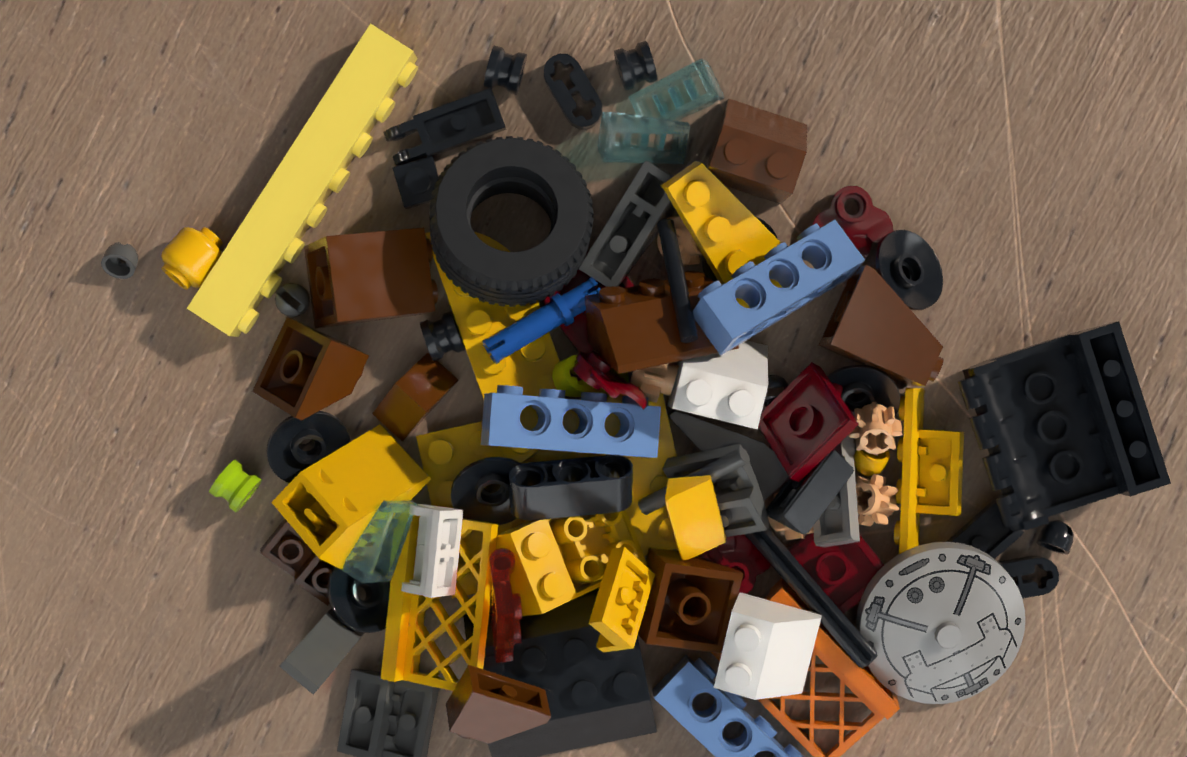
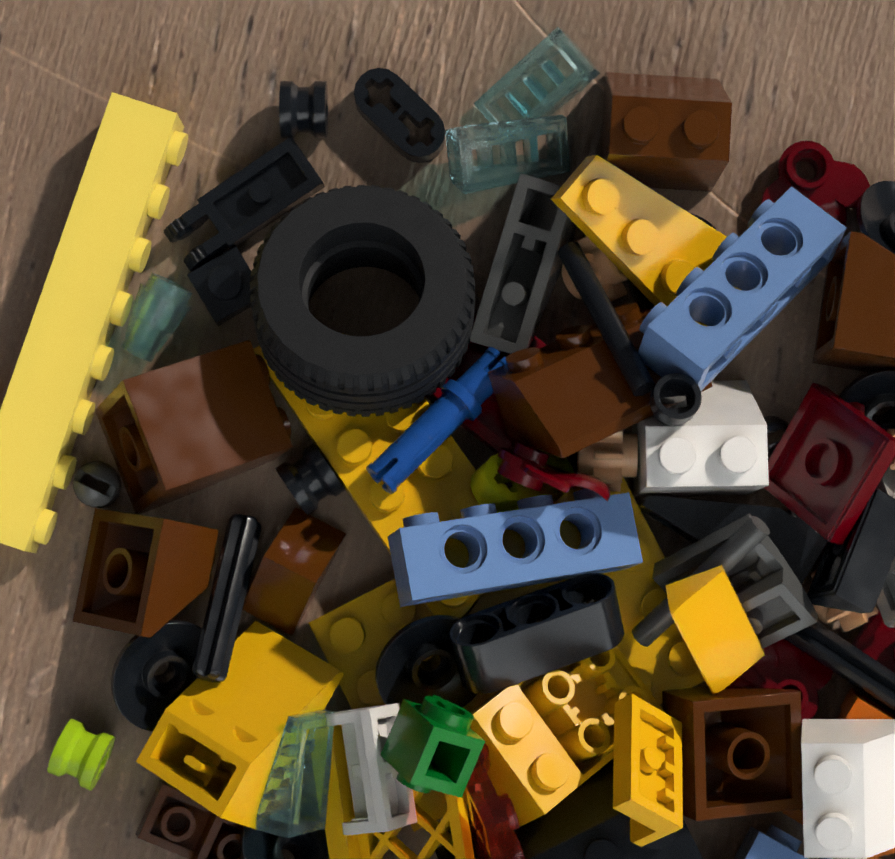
camera: 20 degrees left, 5 degrees down
(363, 191) = (155, 316): none -> clear light blue cone
(363, 404) = (227, 598): none -> black axle
(477, 548) = (433, 746): none -> green brick
(635, 65) = (473, 59): black wheel -> none
(708, 345) = (674, 389): none -> black hinge

